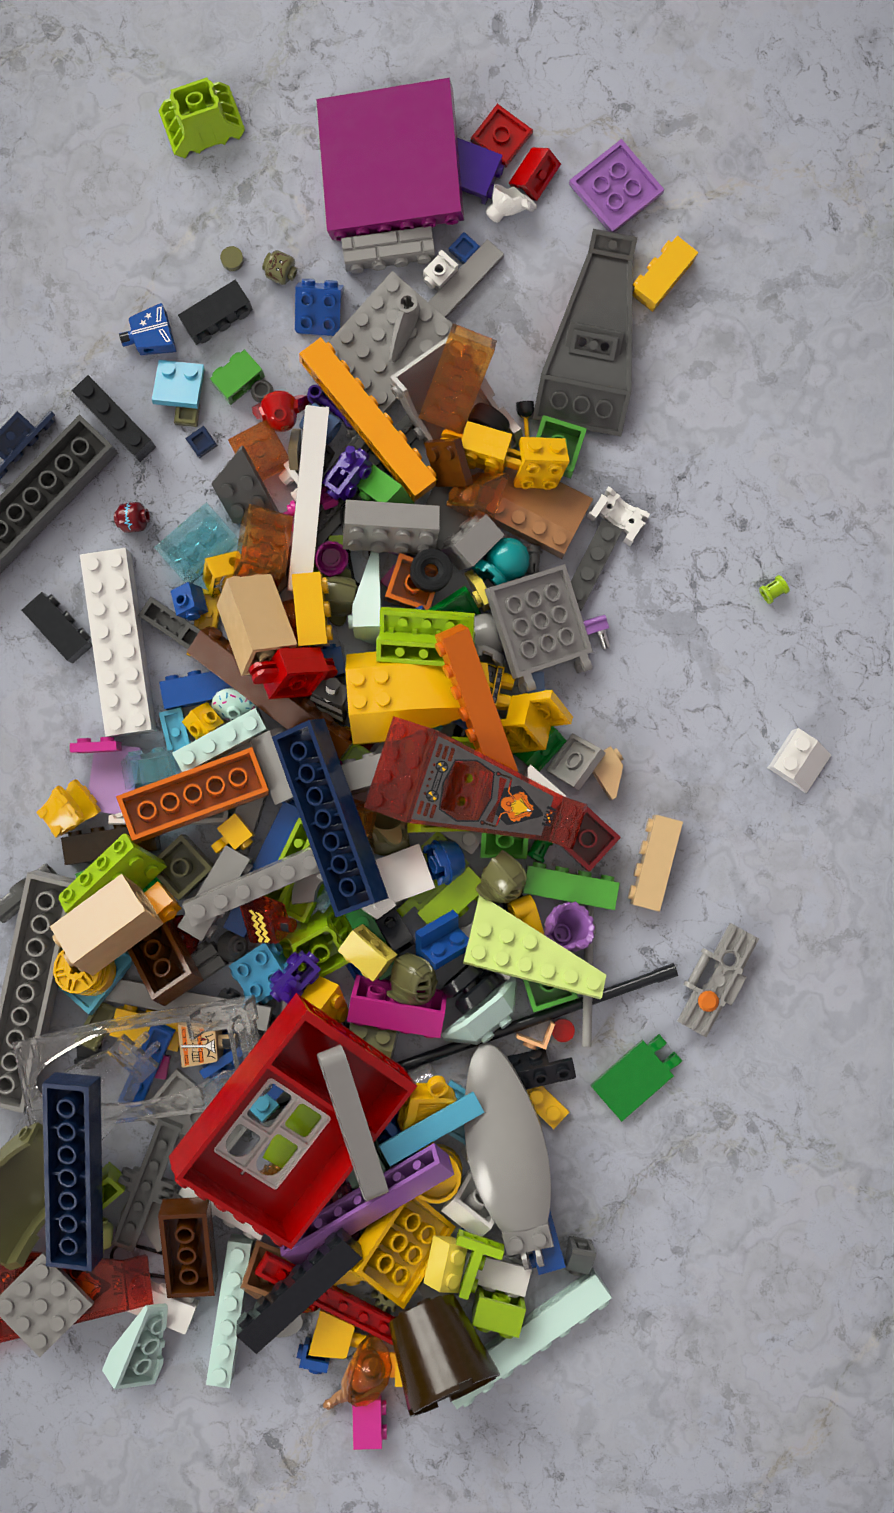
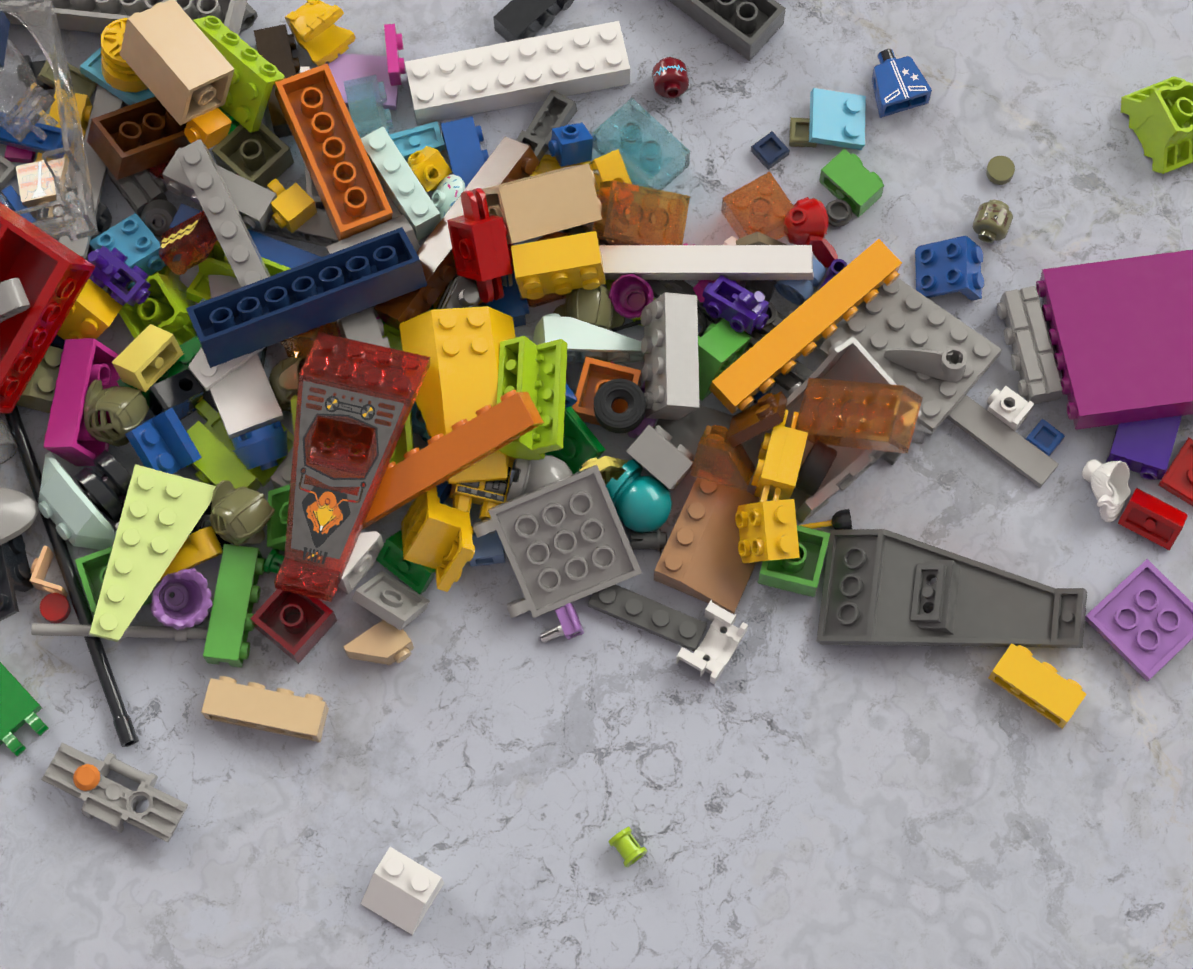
camera: 90 degrees right, 15 degrees down
(114, 418) = (787, 50): black brick -> none
(215, 312) = (929, 154): black brick -> none
(240, 486) = (711, 191): dark grey wing -> none

